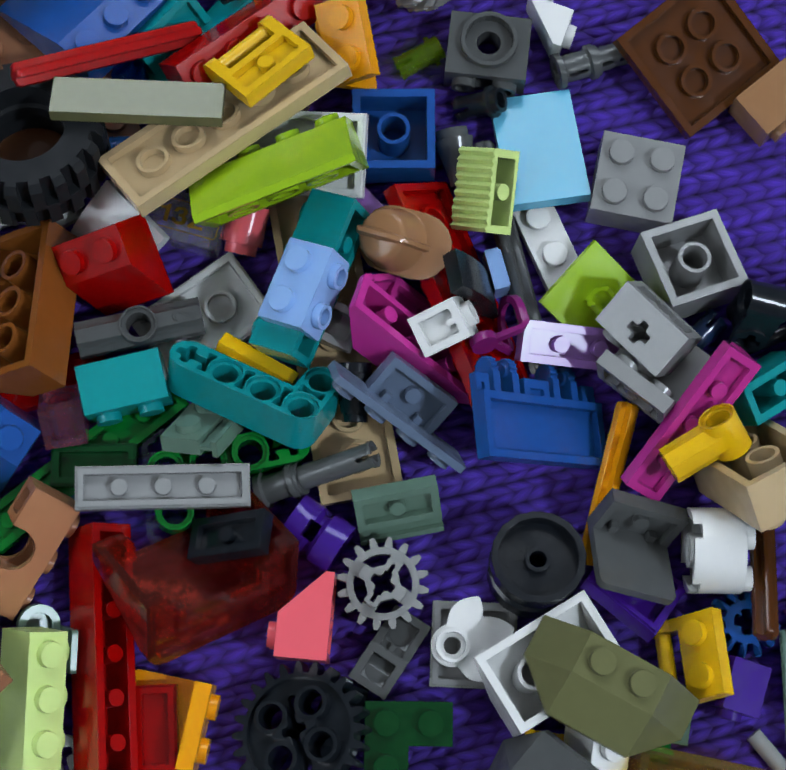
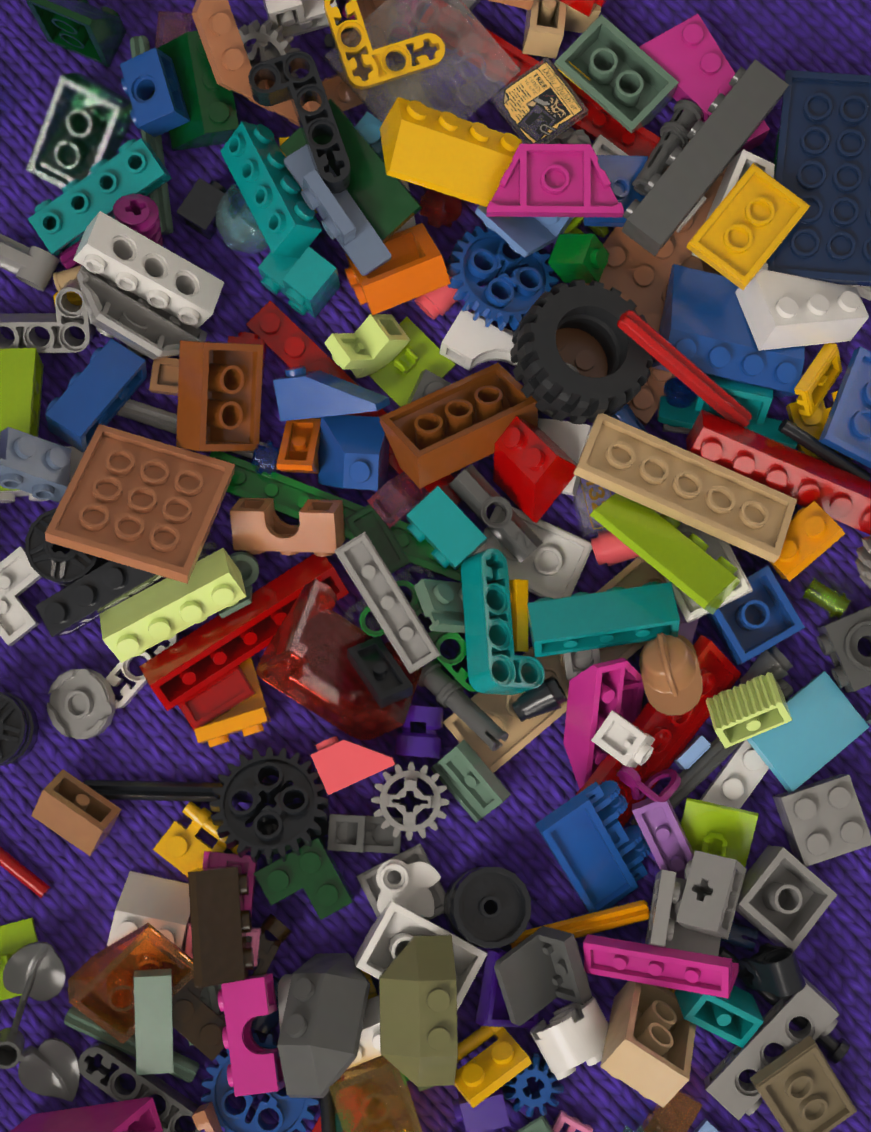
camera: 60 degrees right, 5 degrees up
(137, 101) = (658, 417): tile -> none
(260, 61) = (740, 495): yellow plate -> none
(305, 288) = (590, 622): light blue bracket -> none
(407, 401) = (552, 742): sand blue bracket -> none
(471, 281) = (669, 740): black slope -> none
(489, 102) = (820, 671): black pin -> none
(716, 438) = (656, 993): yellow piece -> none
(764, 591) = (563, 1089): reddish brown axle -> none

